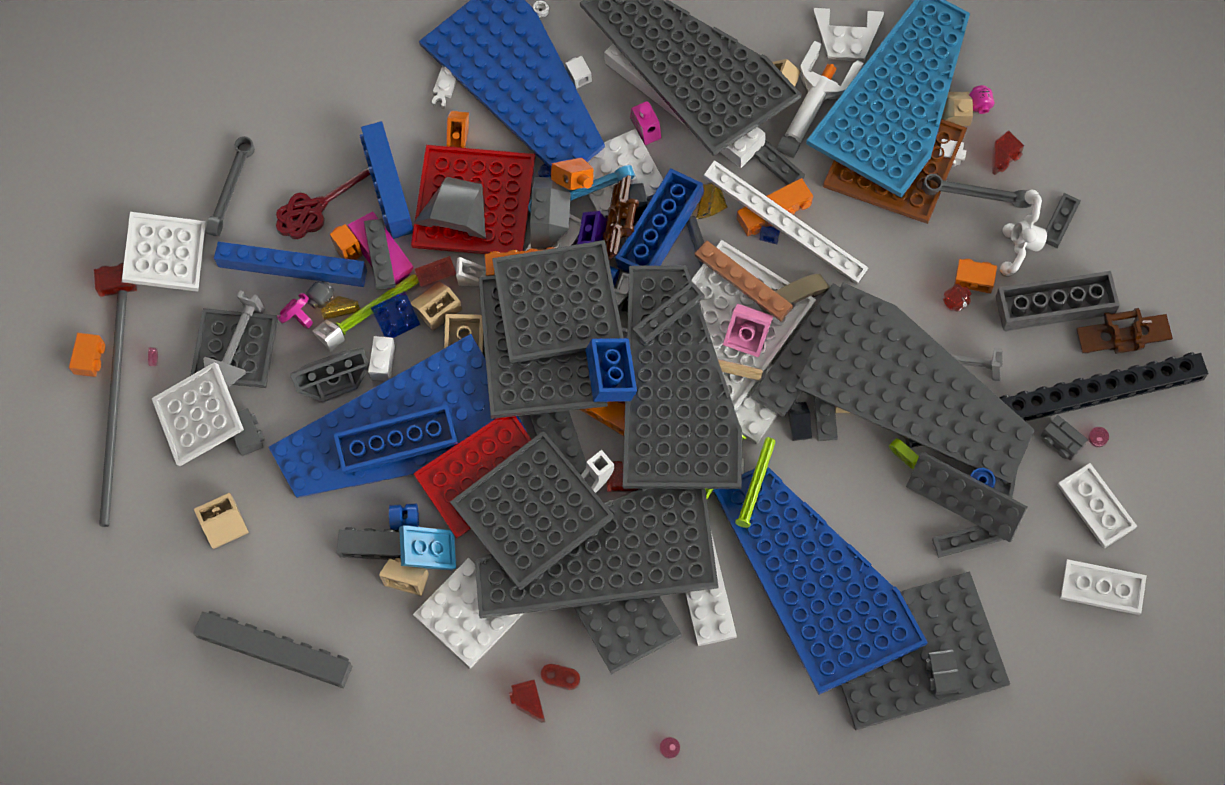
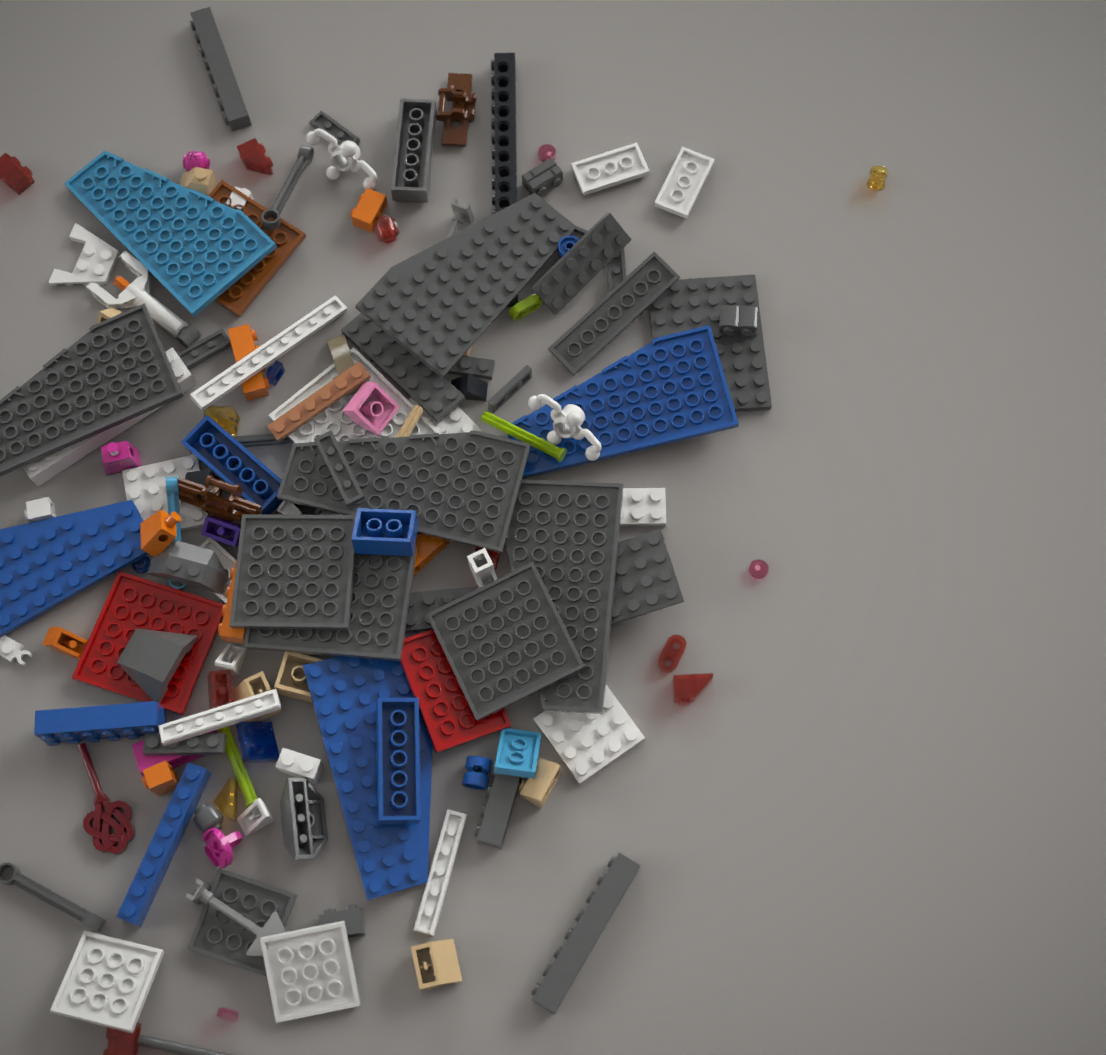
camera: 80 degrees left, 0 degrees up
(308, 507) = (440, 872): none -> white tile
(407, 275) = (219, 717): none -> white tile
(772, 518) = (567, 424): none -> white wheel
(808, 459) = (510, 389): none -> dark grey tile
(920, 543) = (614, 313): none -> dark grey plate
(1100, 91) = (220, 68): none -> dark grey brick

